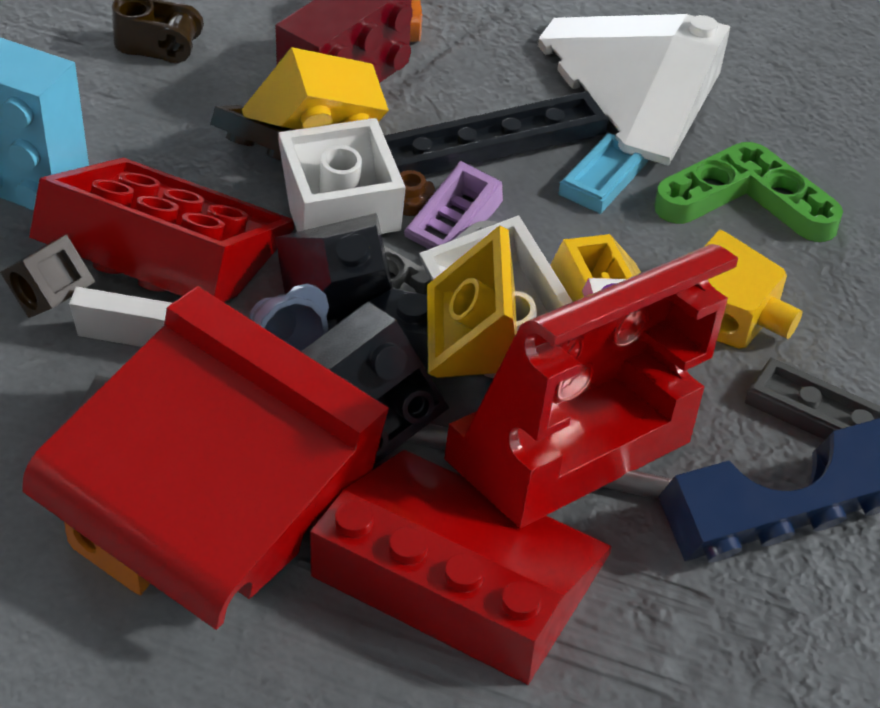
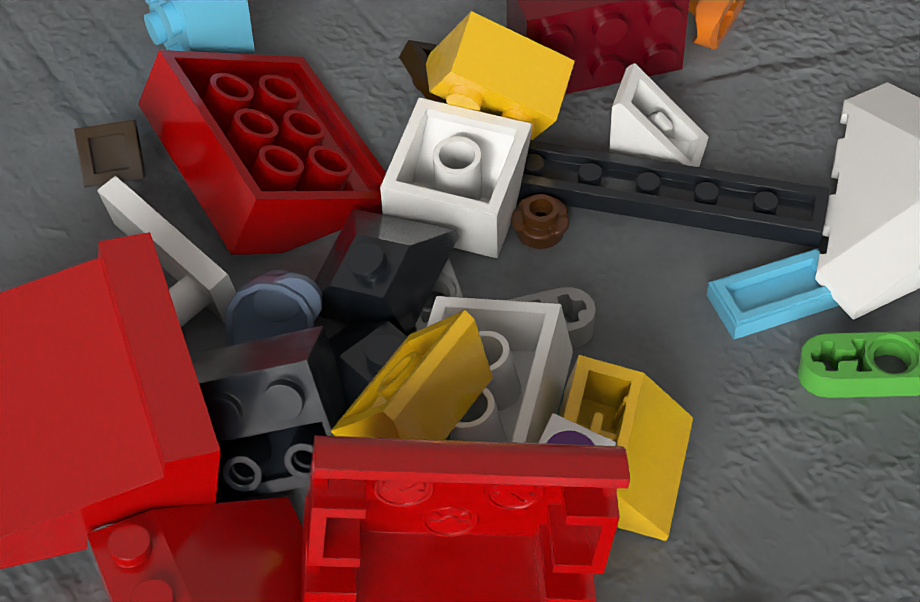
camera: 40 degrees right, 5 degrees up
(431, 97) = (651, 124): none -> white slope
(462, 180) = (578, 239): lavender slope -> none
(752, 295) = (771, 507): yellow torso -> none

